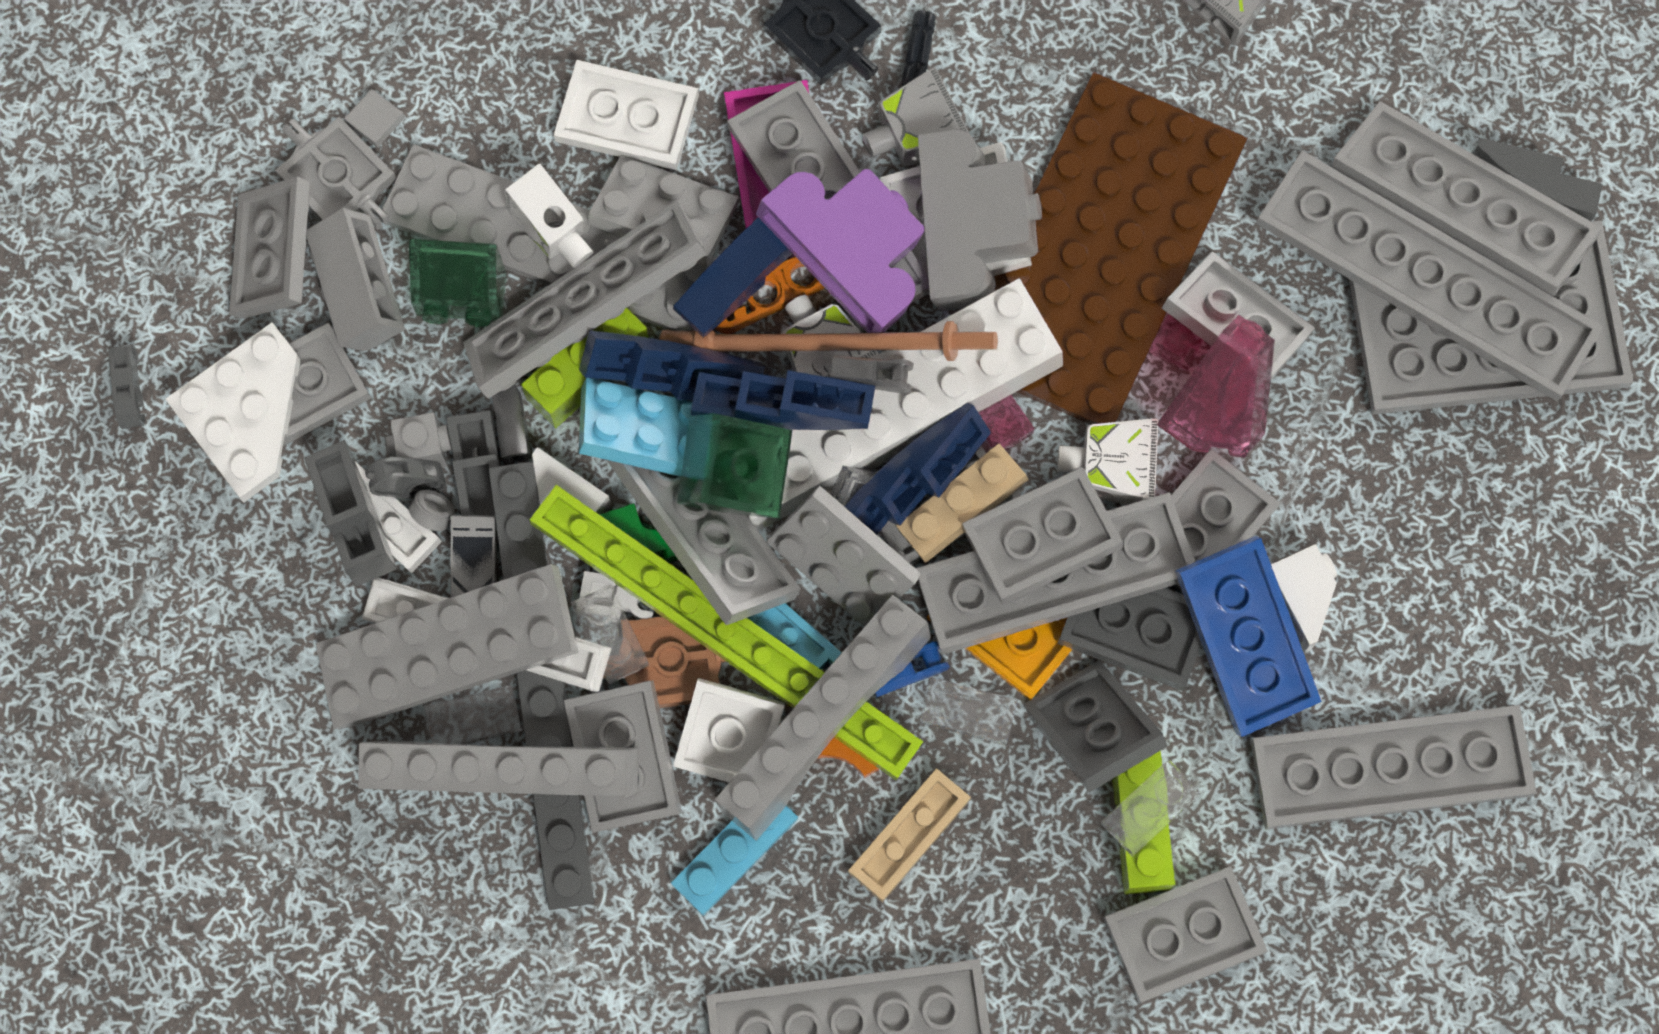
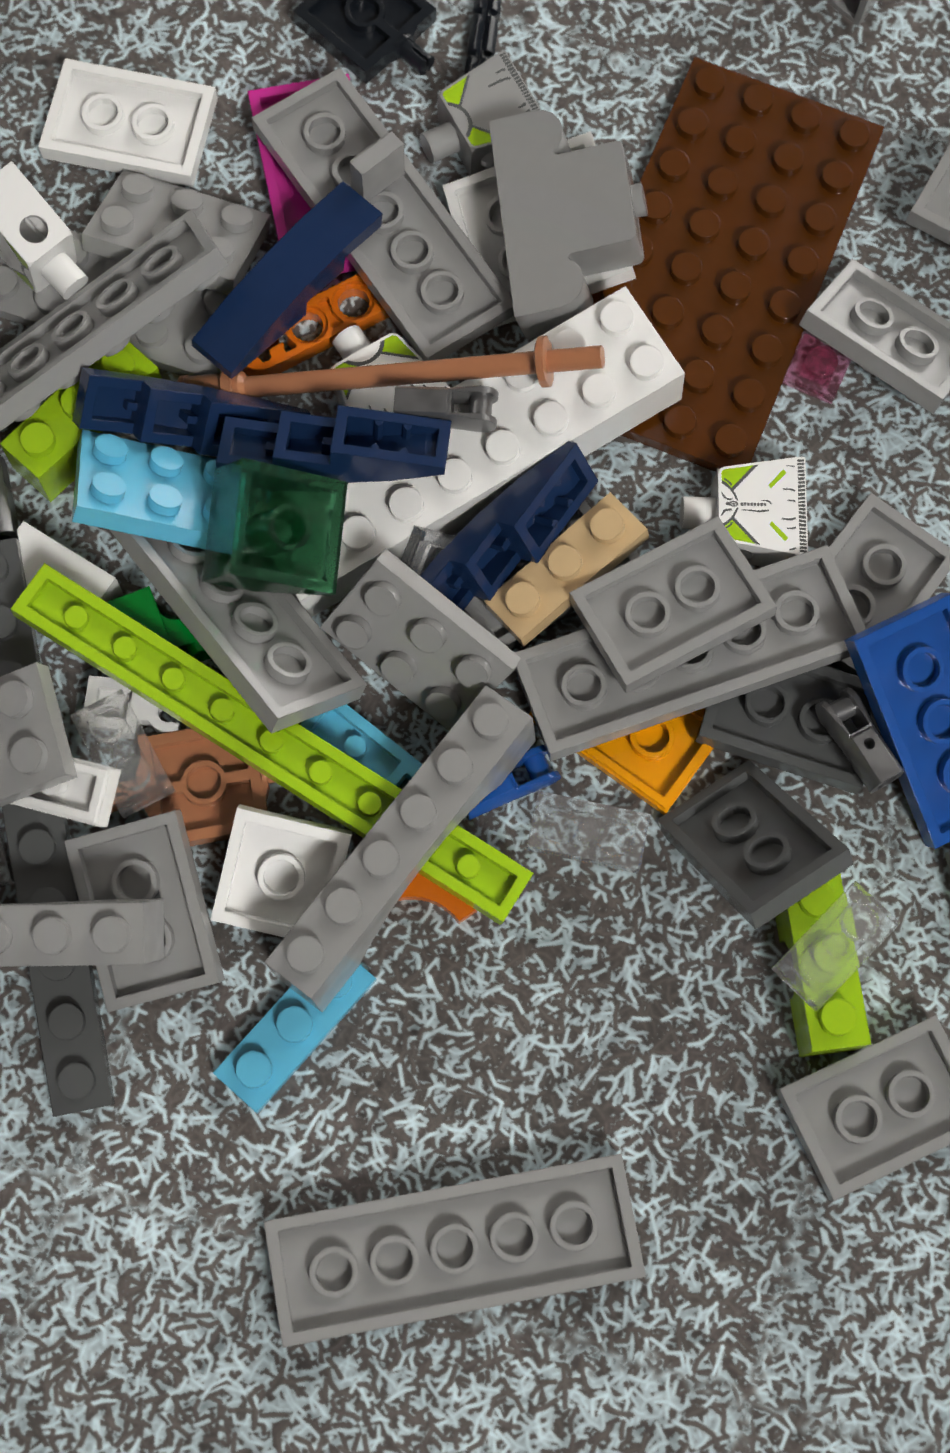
camera: 10 degrees left, 0 degrees up
(830, 166) = (378, 166): none -> light grey tile
(849, 242) = (408, 248): medium lavender brick -> none
(909, 835) = (520, 995): tan plate -> none
(1006, 423) = (617, 472): clear pink plate -> none
(1188, 654) = (863, 748): none -> flat silver bar
(1226, 394) = (889, 419): clear pink slope -> none

